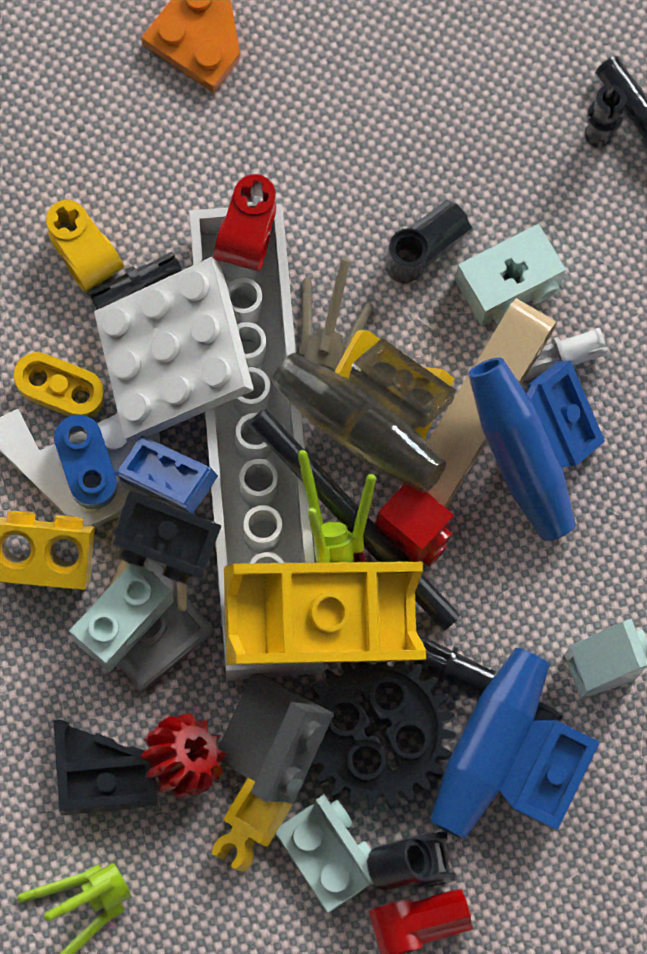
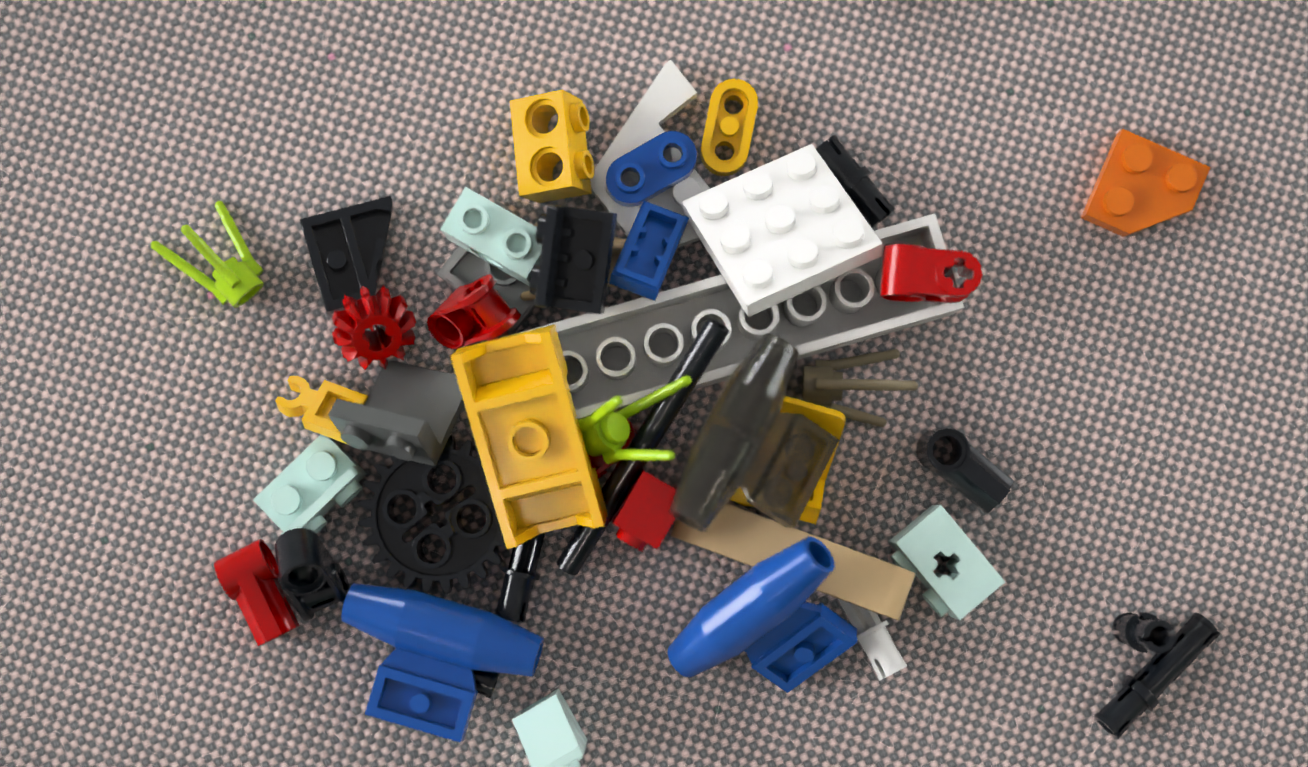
camera: 80 degrees right, 10 degrees up
(85, 250) = (876, 121): yellow piece -> none
(192, 654) = (472, 315): none -> red piece

